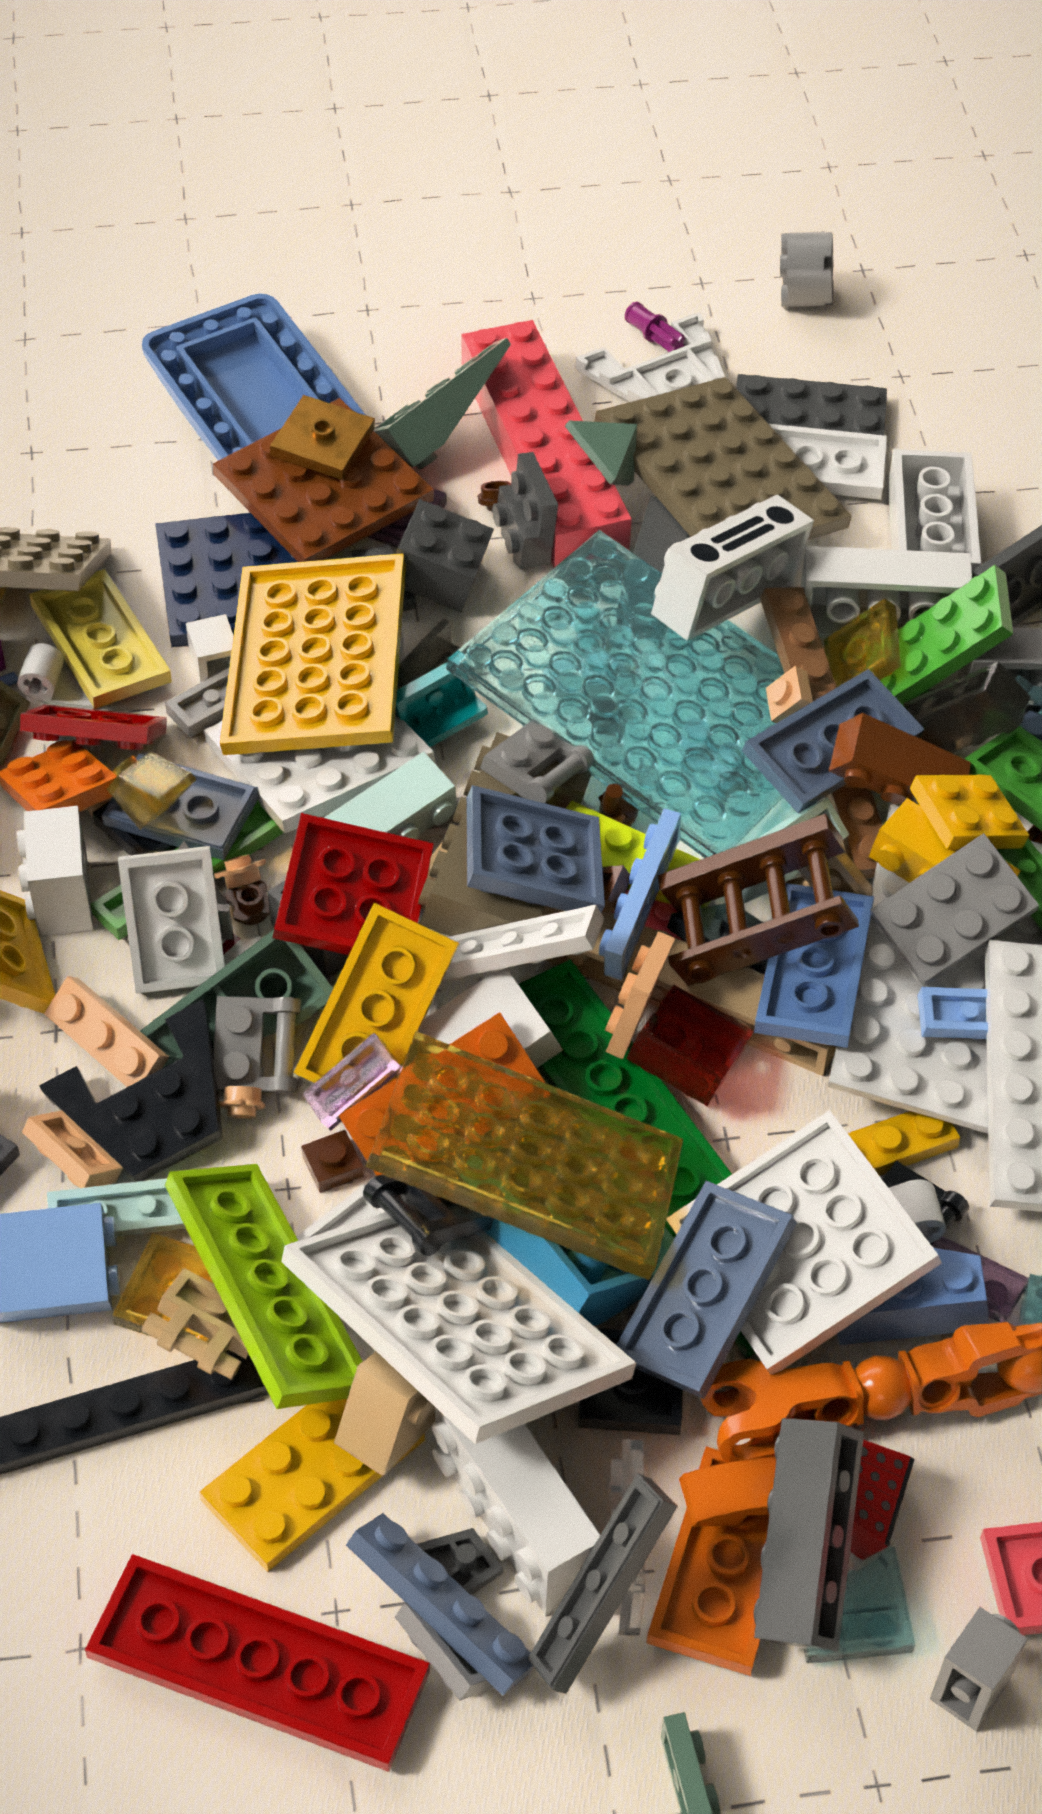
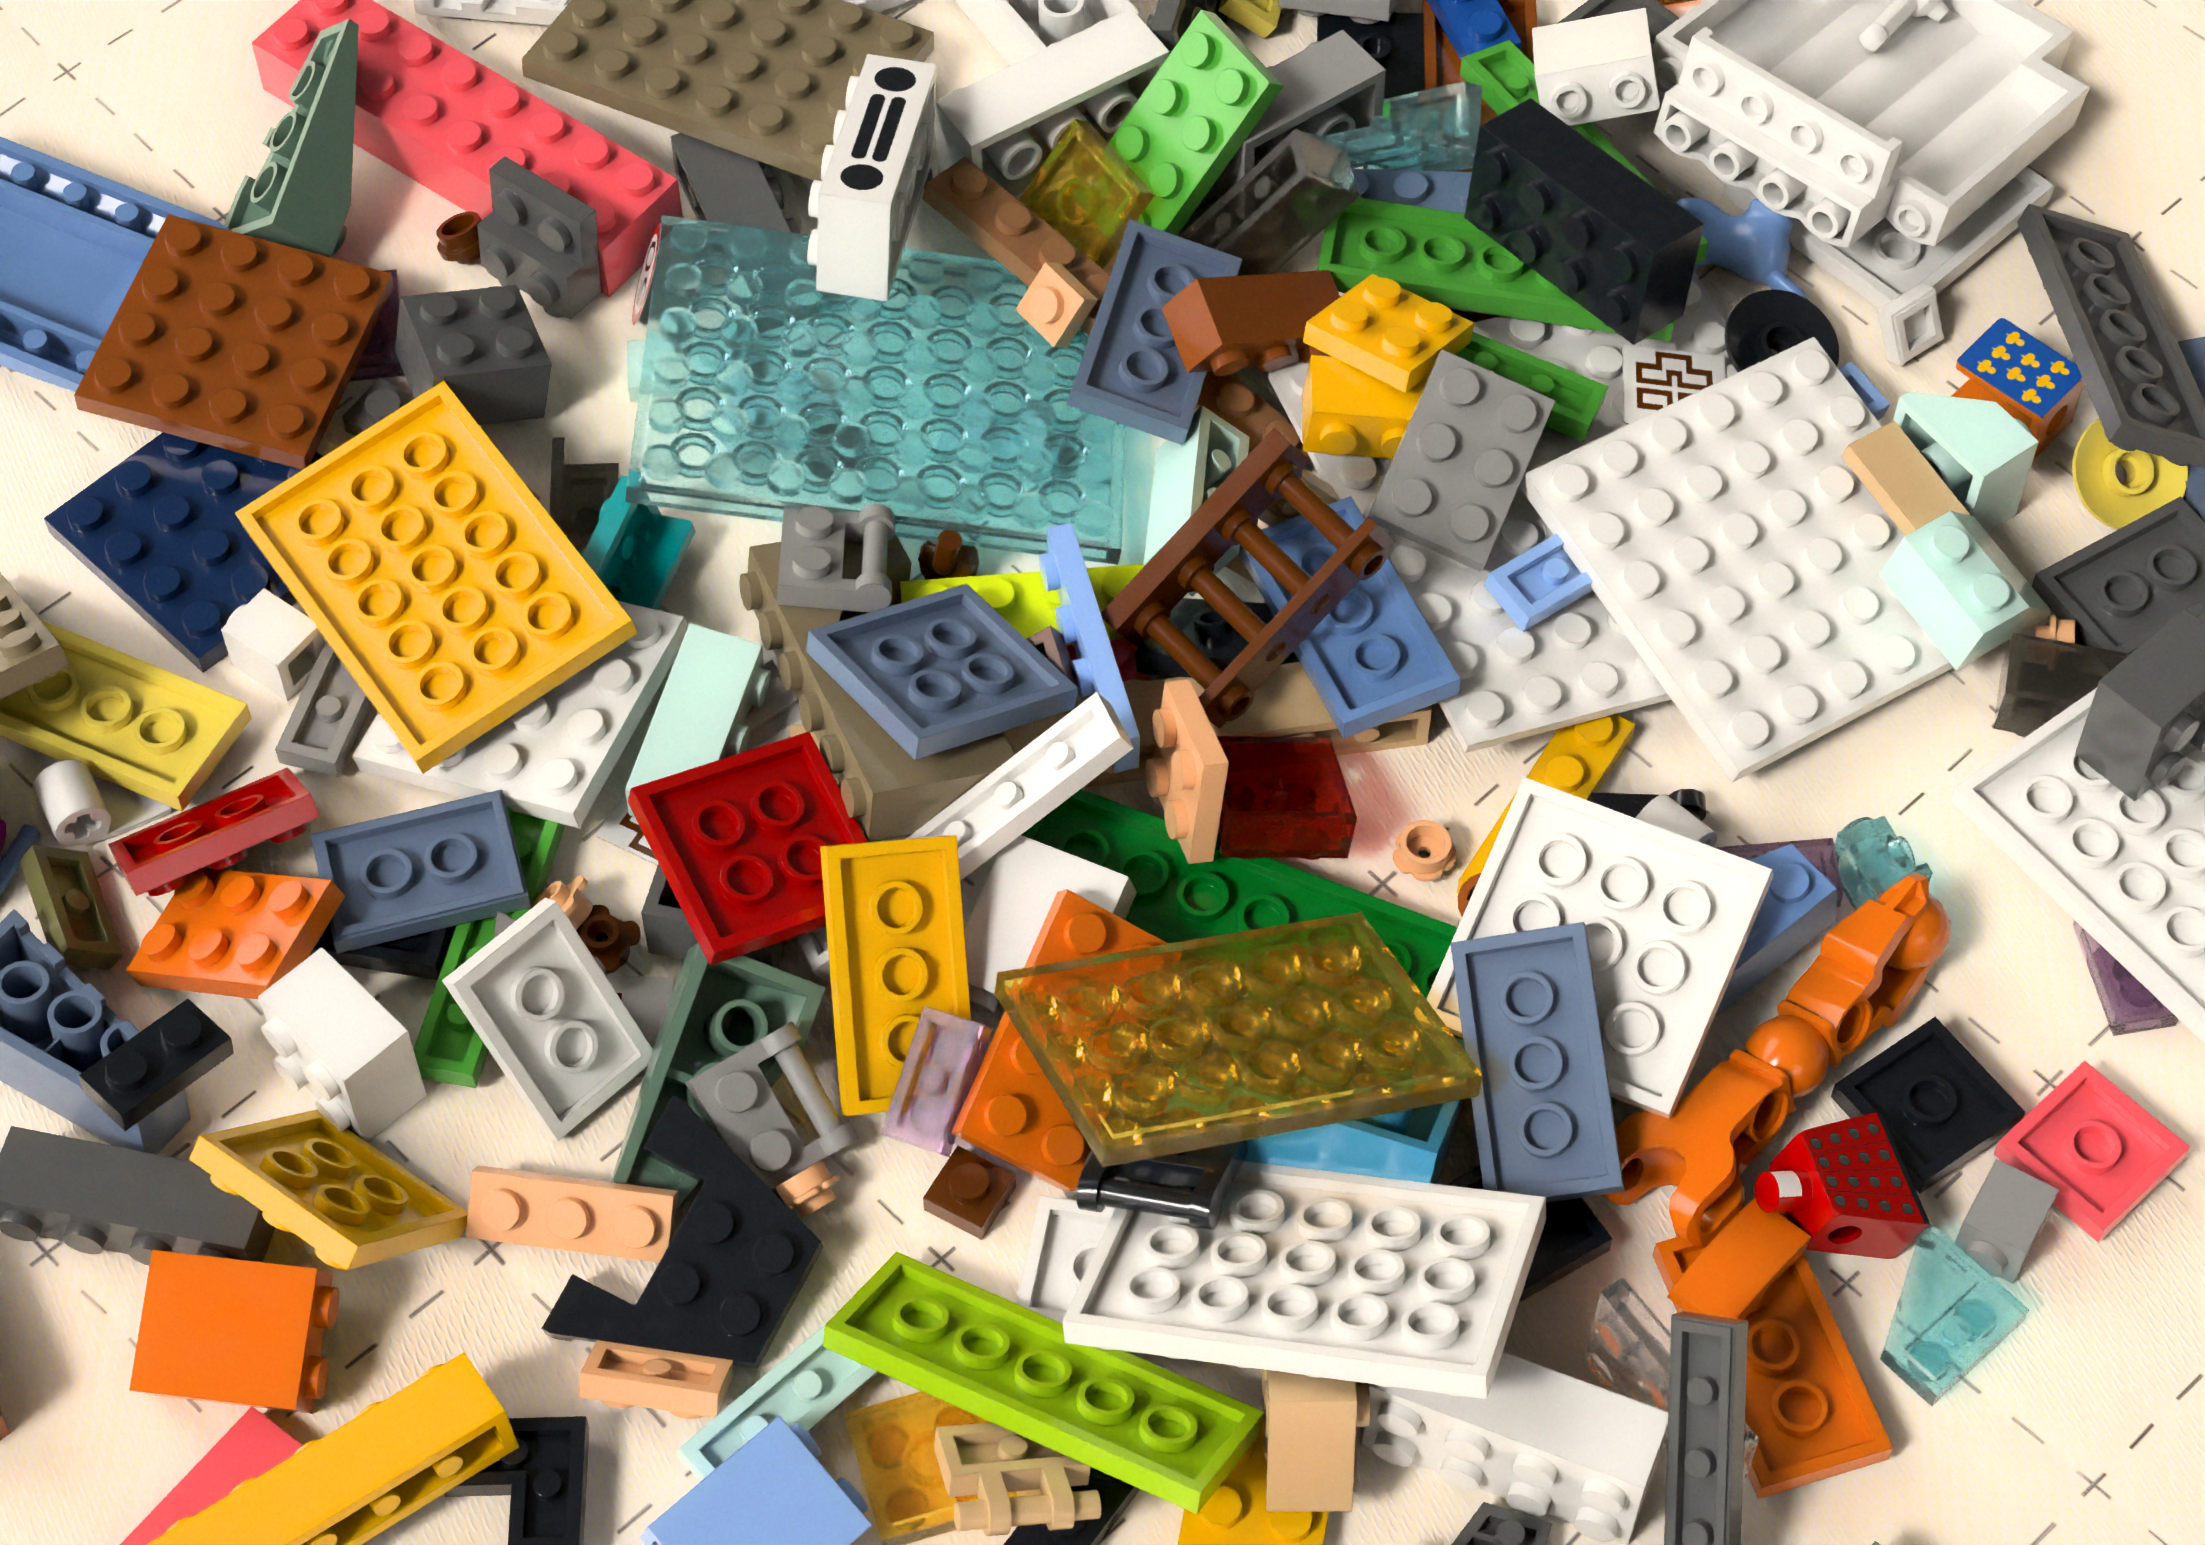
camera: 35 degrees left, 5 degrees up
(148, 787) = (395, 868): clear yellow slope -> none
(322, 437) = (200, 280): pearl gold plate -> none
(608, 447) = (579, 97): sand green slope -> none
(762, 1123) = (1425, 837): none -> light nougat plate
(809, 1534) = (1862, 1265): dark grey brick -> none
(946, 1581) = (2005, 1220): none -> light grey brick
(959, 1478) = (1933, 1100): none -> black plate
(978, 1667) = (2117, 1290): light grey brick -> none

